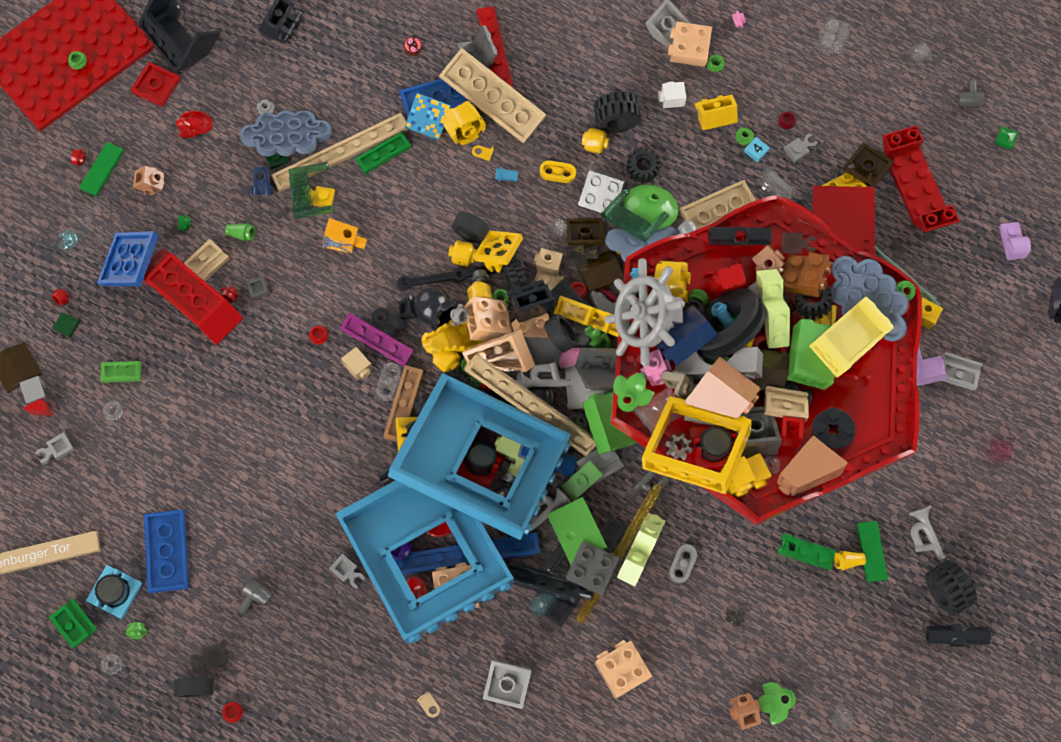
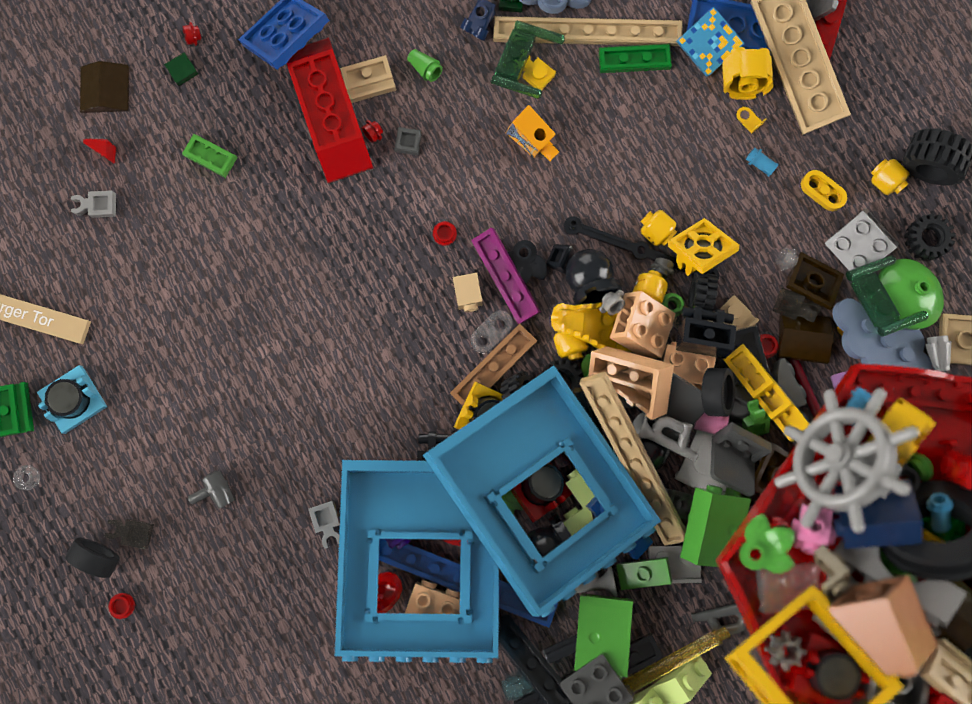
camera: 35 degrees right, 10 degrees up
(33, 389) = (104, 124): light grey panel -> none
(109, 406) = (173, 190): clear plate -> none
(136, 630) = (69, 456): bright green plate -> none
(166, 551) = (149, 386): blue tile -> none
(183, 223) = (368, 20): green plate -> none
(470, 227) = (684, 202): black tyre -> none
(548, 261) = (751, 292): tan brick -> none

